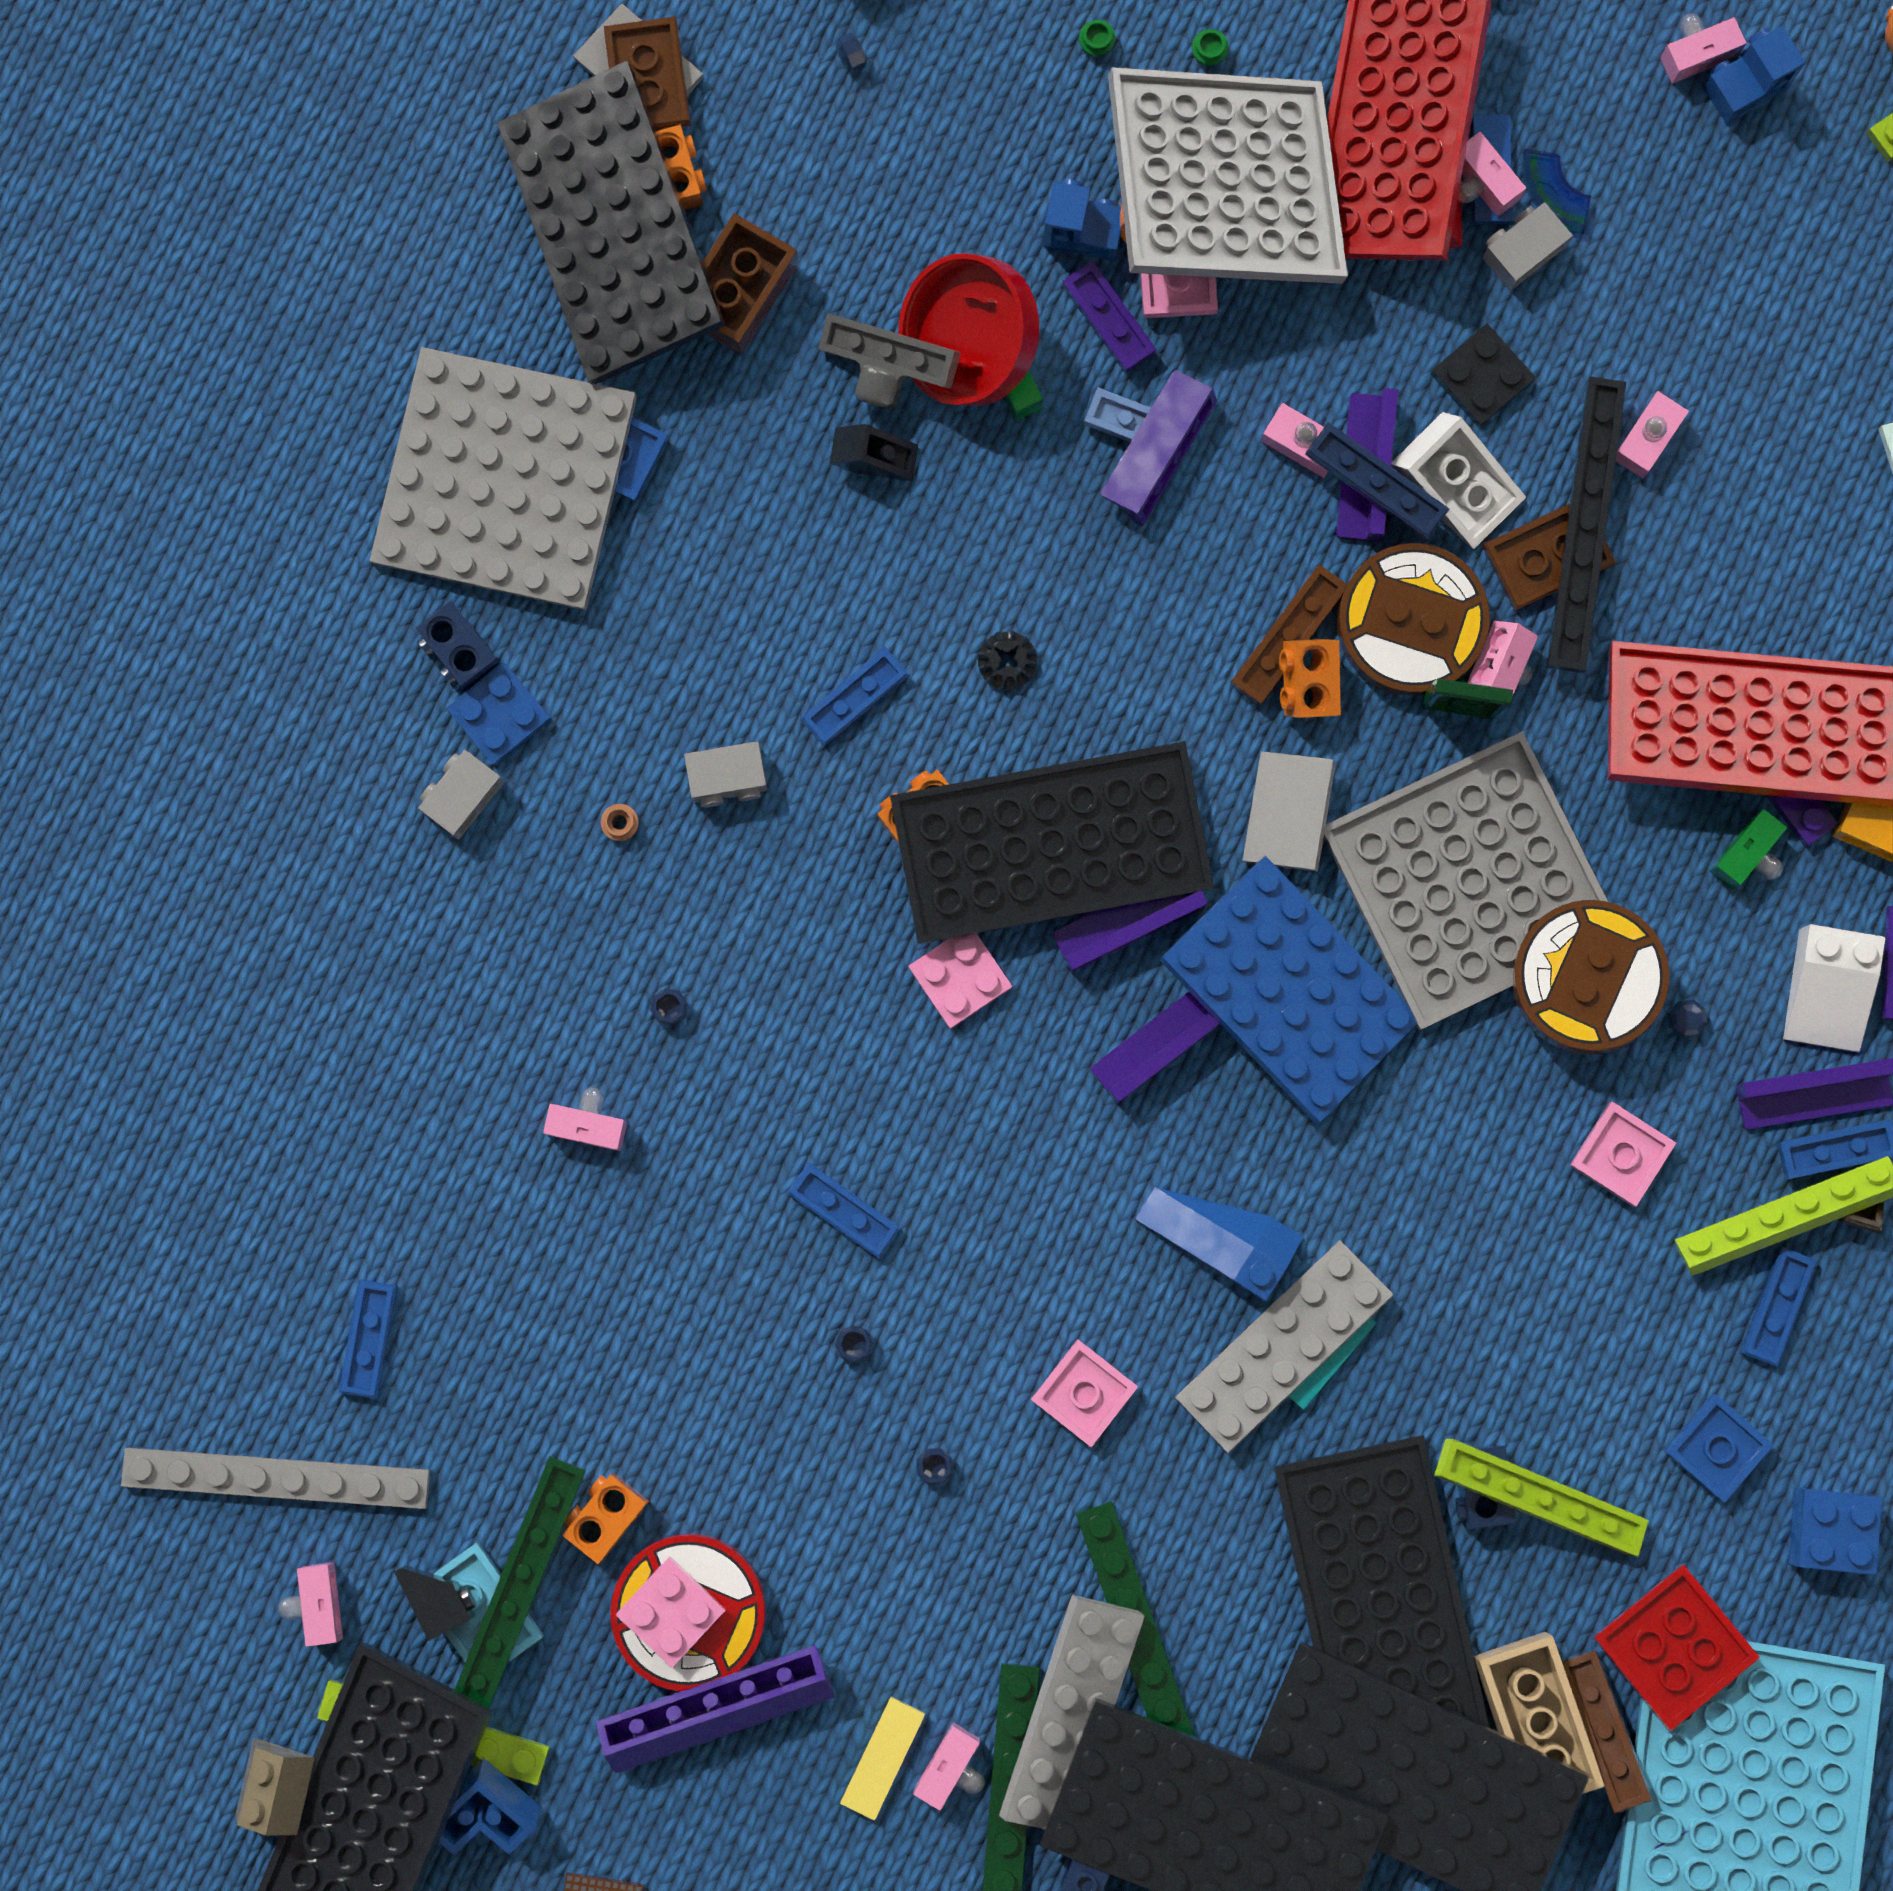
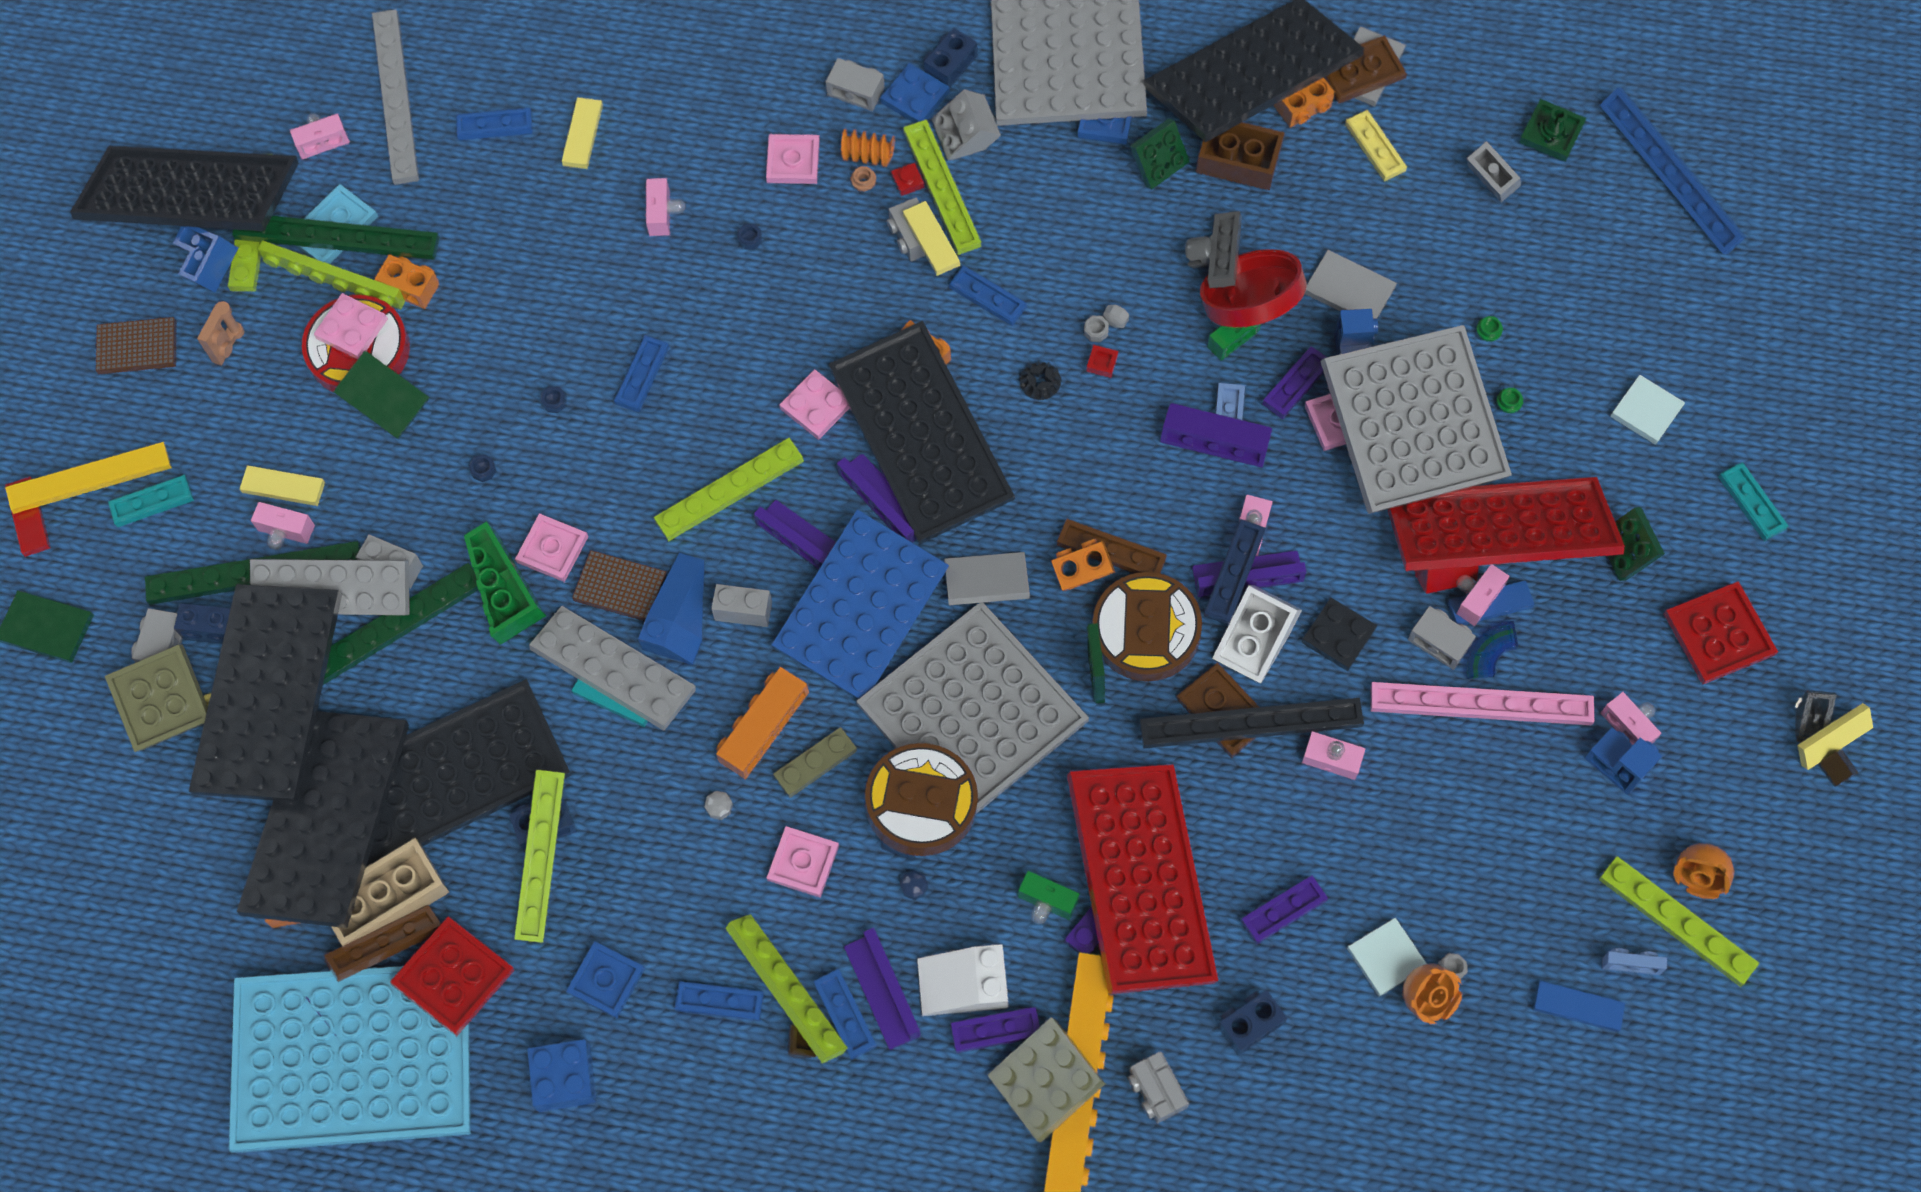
camera: 75 degrees right, 15 degrees down
(273, 1789) = (196, 133): dark tan slope -> none
(422, 1211) = (582, 133): none -> light yellow tile
(436, 1600) = (332, 192): black slope -> none
(559, 914) = (793, 159): none -> bright pink plate
(574, 803) = (867, 148): none -> orange piece
(575, 1616) = (335, 276): none -> lime plate
(577, 655) = (965, 125): none -> light grey slope
(633, 1813) = (213, 337): none -> nougat plate
(636, 760) = (907, 179): none -> red plate
(665, 714) = (942, 187): none -> lime plate
(708, 396) = (1154, 151): none -> dark green plate
(714, 1709) = (294, 372): dark purple brick -> none
(760, 749) = (931, 238): none -> light yellow tile
(768, 96) = (1375, 145): none -> light yellow tile
(786, 1588) = (381, 394): none -> dark green tile
(851, 52) = (1422, 183): dark blue tile -> none
(873, 452) = (1154, 263): black slope -> none
(942, 530) = (1116, 316): none -> light grey tile
(951, 562) = (1096, 328): none -> light grey tile
(983, 200) = (1349, 285): none -> light grey tile
(1005, 567) = (1102, 361): none -> red plate
(1041, 1629) = (381, 550): none -> light grey brick
(1057, 1128) = (728, 489): none -> lime plate
(1127, 1473) = (504, 592): none -> green wedge
(1164, 1311) = (618, 585): none -> reddish brown tile
(1243, 1149) = (742, 605): none -> light grey brick
(1418, 1162) = (762, 722): none -> orange brick
(1486, 1105) = (815, 762): none -> olive plate
(1504, 657) = (1133, 693): bright pink piece -> none
(1514, 1247) = (718, 805): none -> light grey tile
(1627, 226) = (1482, 703): none -> bright pink plate
(1837, 559) = (1284, 909): none -> dark purple plate

